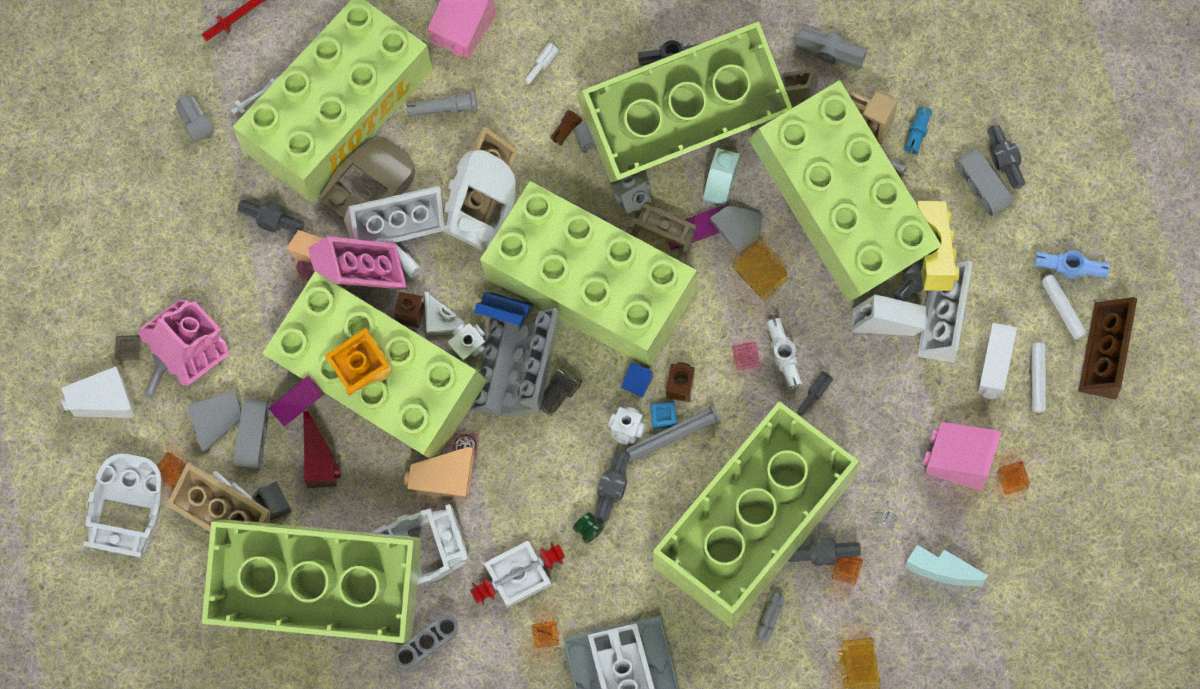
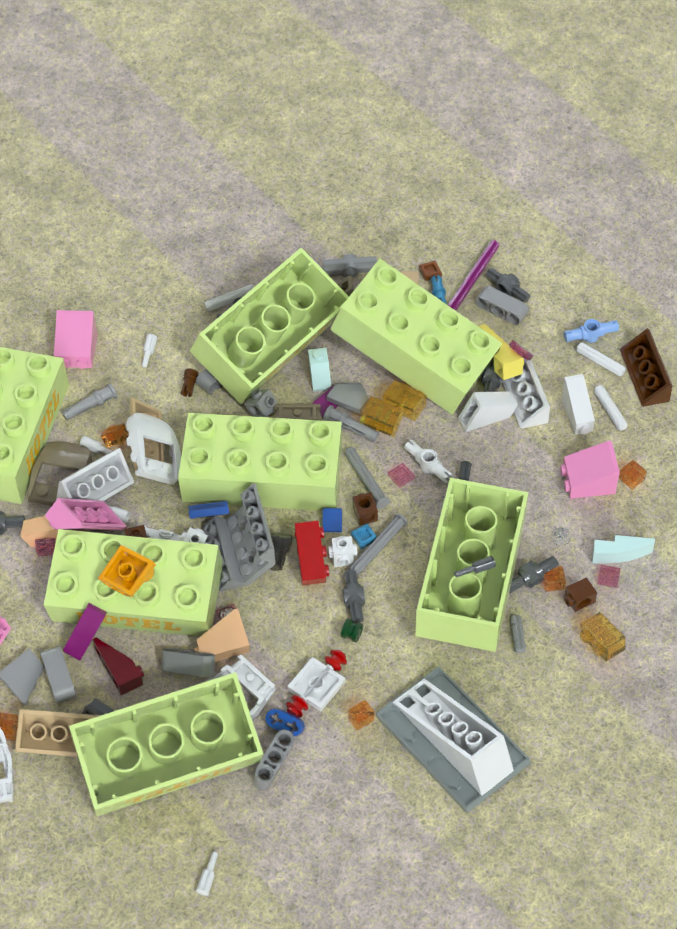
camera: 30 degrees left, 15 degrees down
(390, 487) = (188, 662): none -> light grey beam
(423, 165) = (94, 445): none -> white axle
(448, 160) = (115, 435): none -> clear orange slope
(462, 602) = (287, 718): none -> blue beam
(589, 413) = (311, 552): none -> red wedge
(668, 31) = (227, 298): none -> white axle
(704, 342) = (367, 478): none -> light grey axle
(715, 256) = (334, 415): none -> light grey pin
(748, 530) = (477, 566): none -> dark grey axle
(799, 261) = (406, 398): none -> clear yellow brick
(864, 603) = (580, 594): none -> reddish brown brick
(914, 593) = (609, 576): none -> clear pink tile
(924, 94) = (429, 270): none -> dark orange tile
(961, 262) = (519, 349): none -> clear pink tile
(969, 126) = (474, 274): none -> magenta axle

